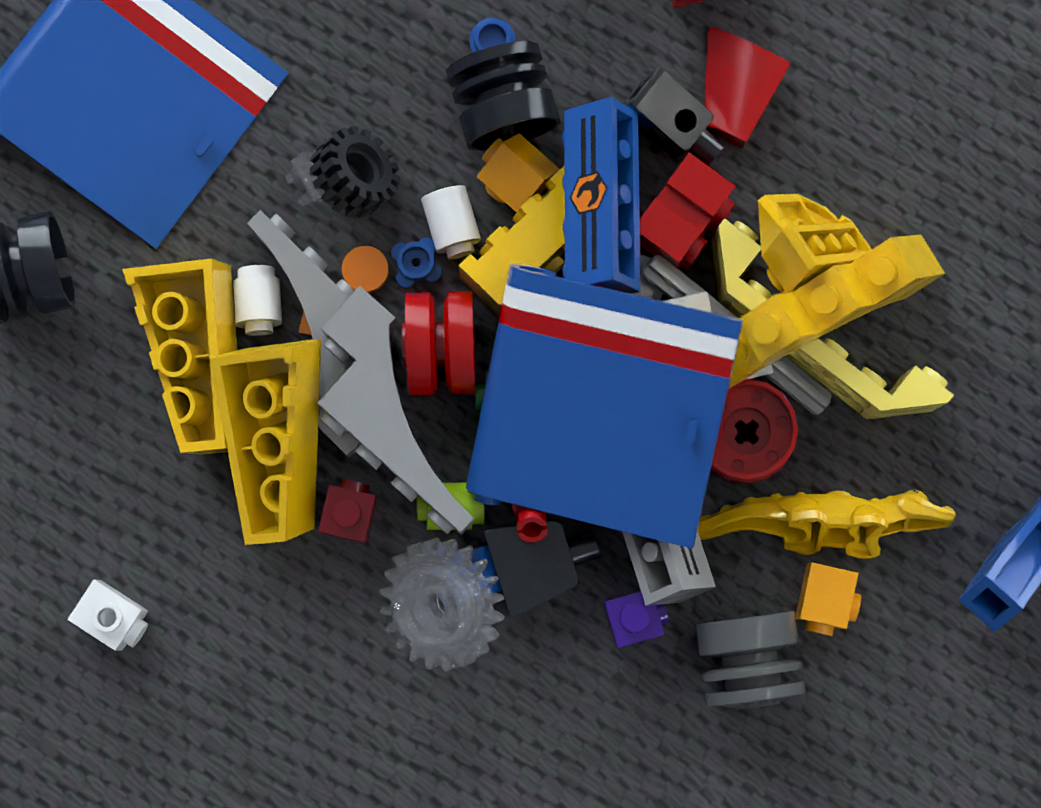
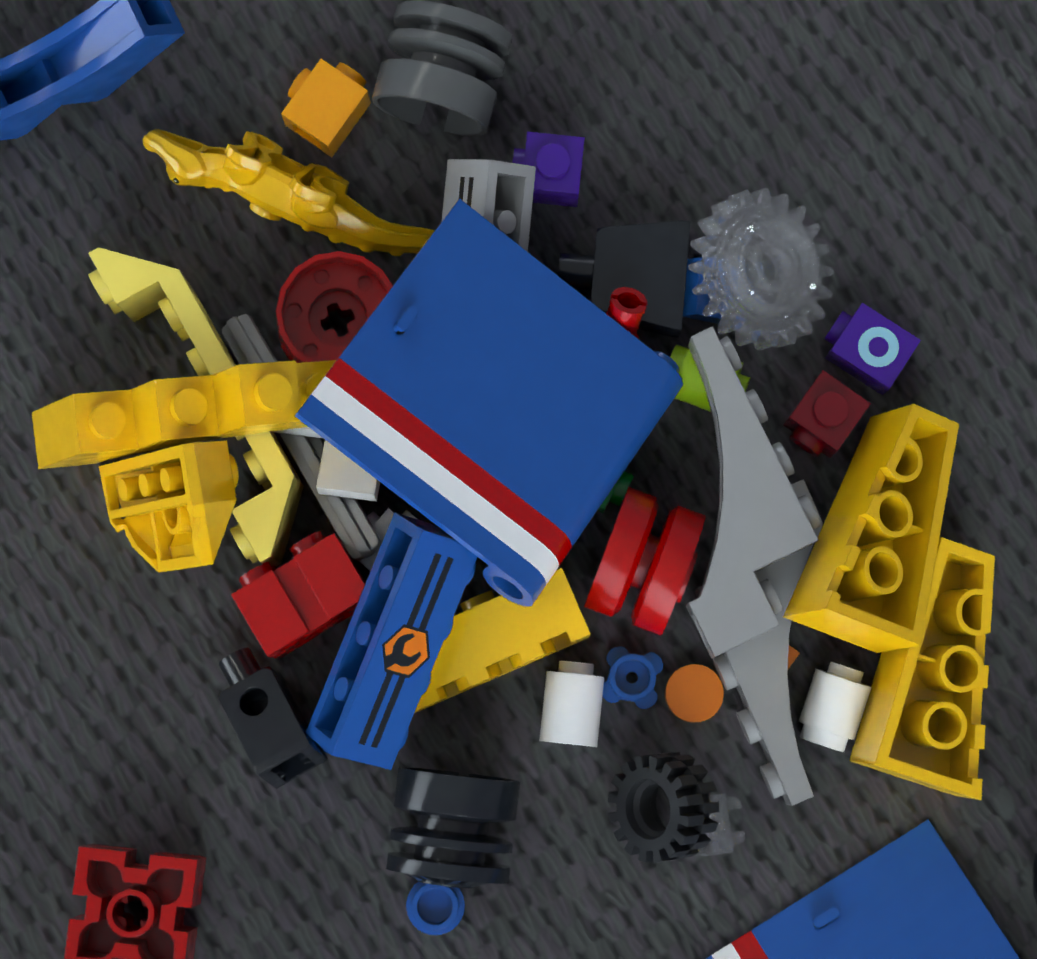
camera: 155 degrees left, 0 degrees up
(335, 580) = (870, 347): none -> dark purple brick
(515, 171) = (473, 731): light orange brick -> none
(739, 84) = (169, 731): red slope -> none

